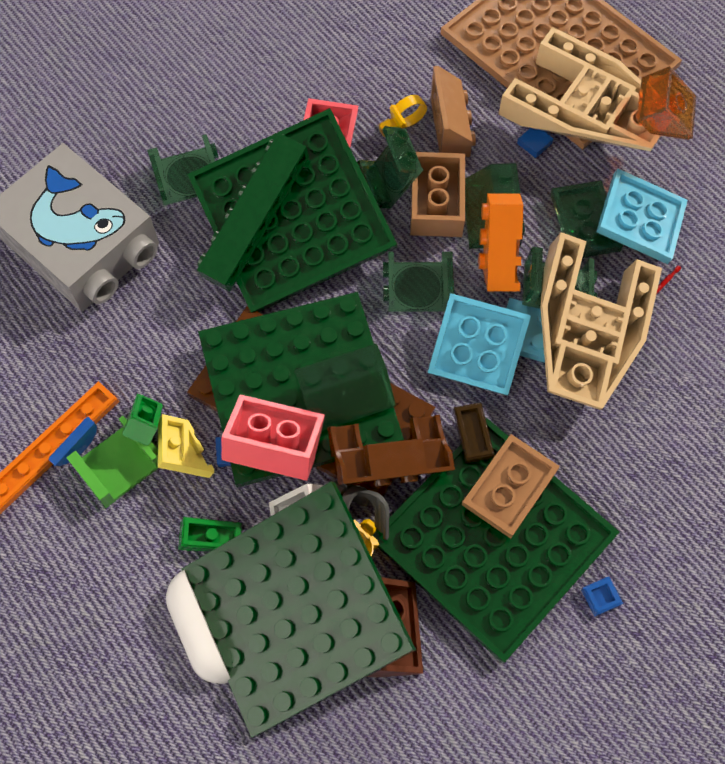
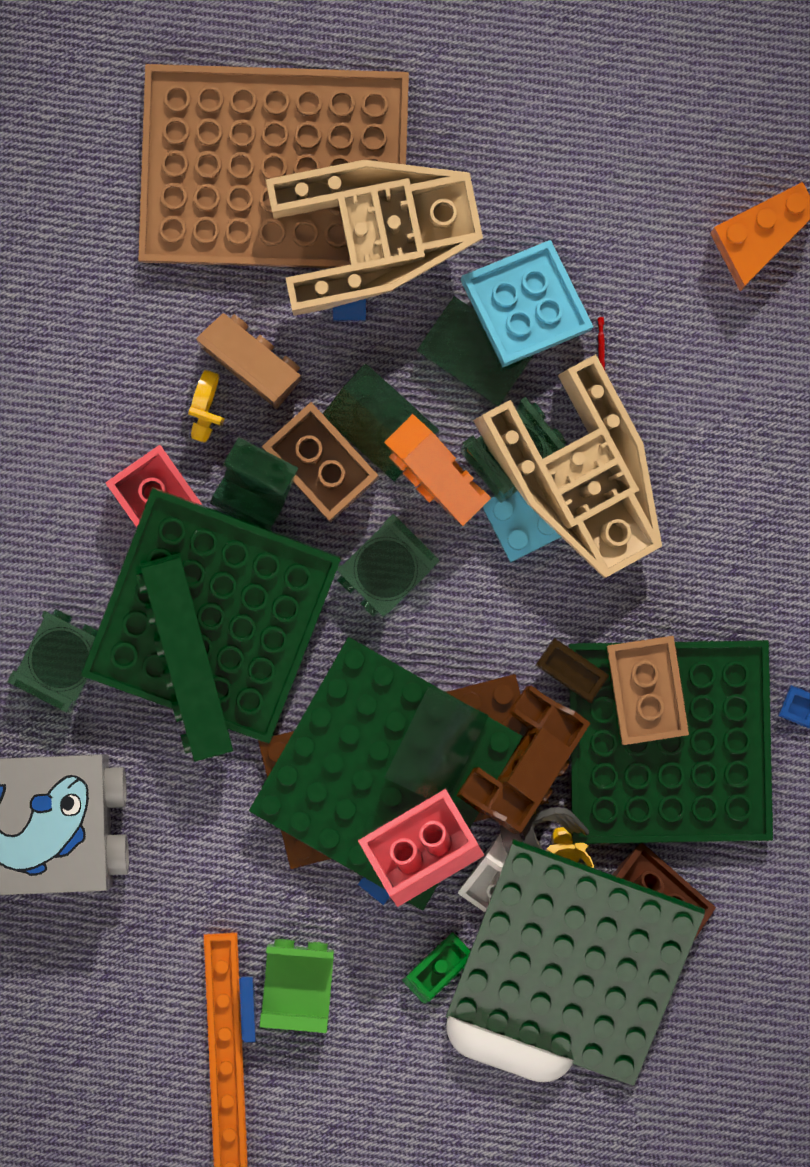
camera: 45 degrees left, 20 degrees up
(143, 419) = (285, 931): green slope -> none
(180, 448) = (339, 922): light yellow wing -> none
(479, 344) = (500, 582): medium azure plate -> none
(666, 105) = (460, 183): clear orange slope -> none

